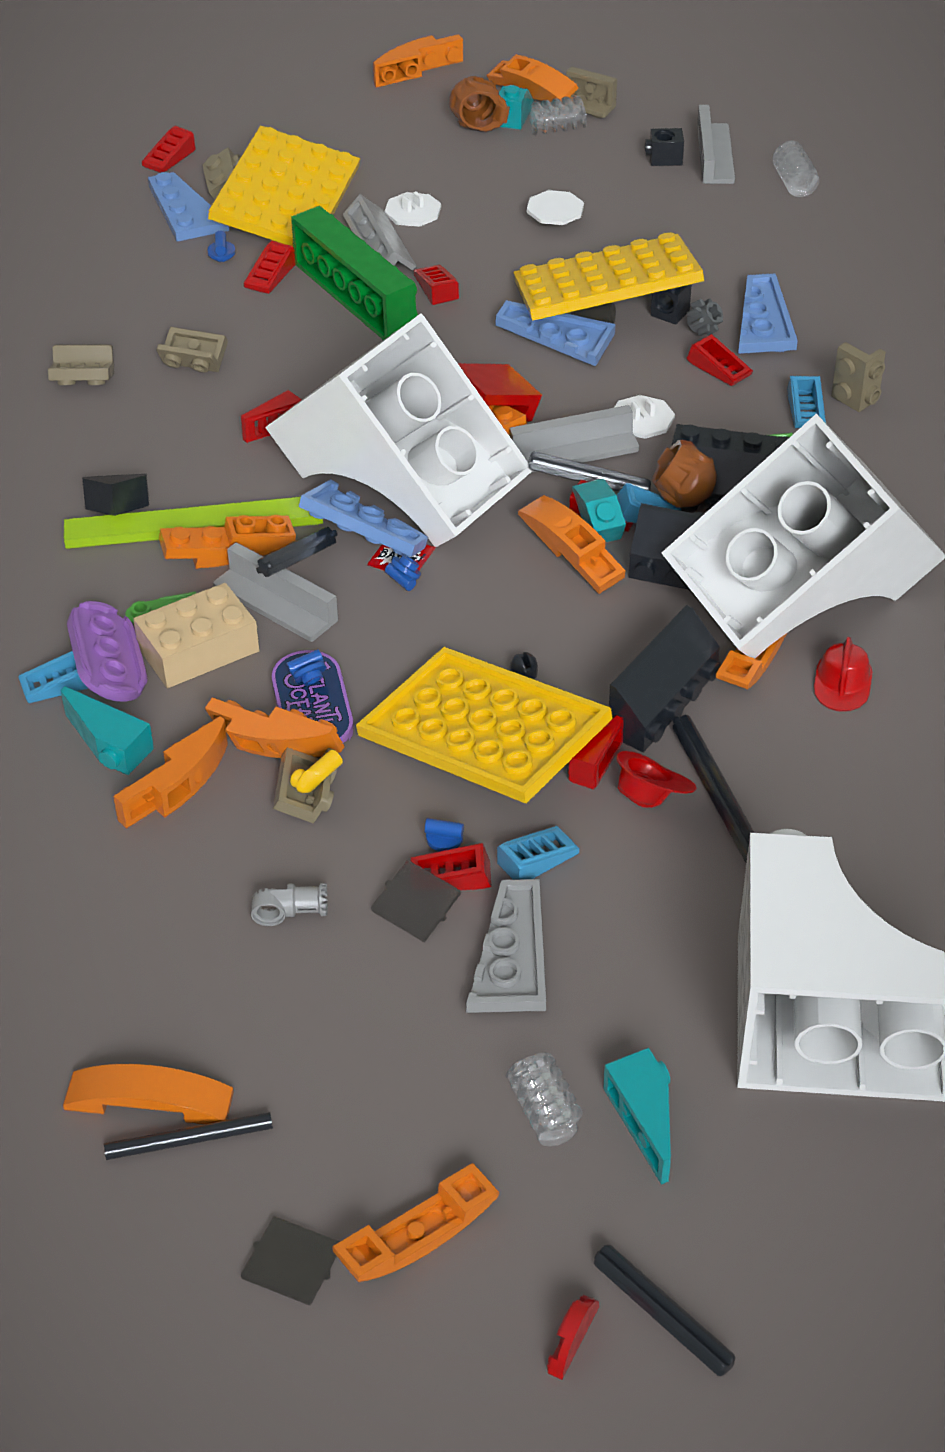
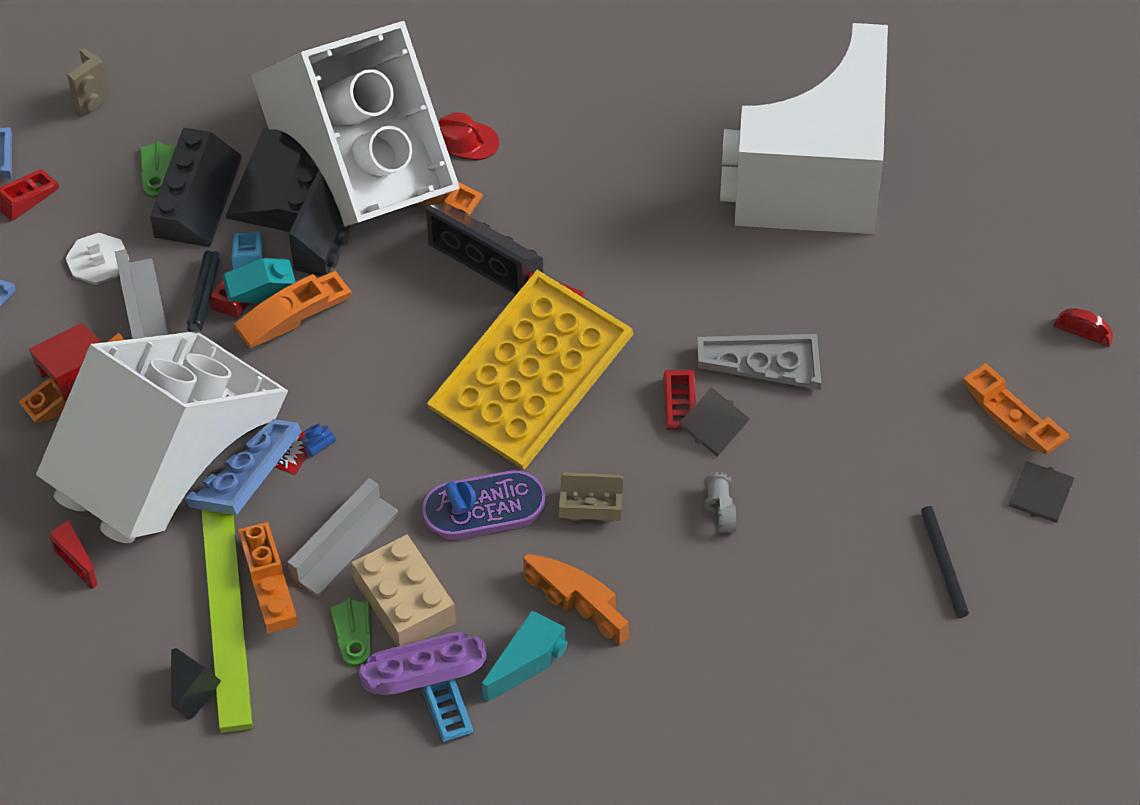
camera: 90 degrees left, 10 degrees up
(149, 1087) = (911, 593): orange slope -> none
(272, 734) = (541, 515): orange slope -> none
(296, 551) = (303, 512): black axle -> none
(308, 780) = (602, 487): yellow arm -> none
(443, 834) = (644, 403): blue plate -> none
(511, 852) = (665, 360): dark azure slope -> none
(525, 659) = (445, 351): black hinge -> none
(545, 1098) = (902, 333): clear piece -> none
(641, 1097) = (907, 278): teal slope -> none
(647, 781) = (593, 259): red piece -> none
(664, 1310) = (1060, 279): black axle -> none
(684, 475) = (230, 209): dark orange helmet -> none
(714, 782) = (599, 223): black axle -> none
(805, 386) = (84, 137): dark azure slope -> none

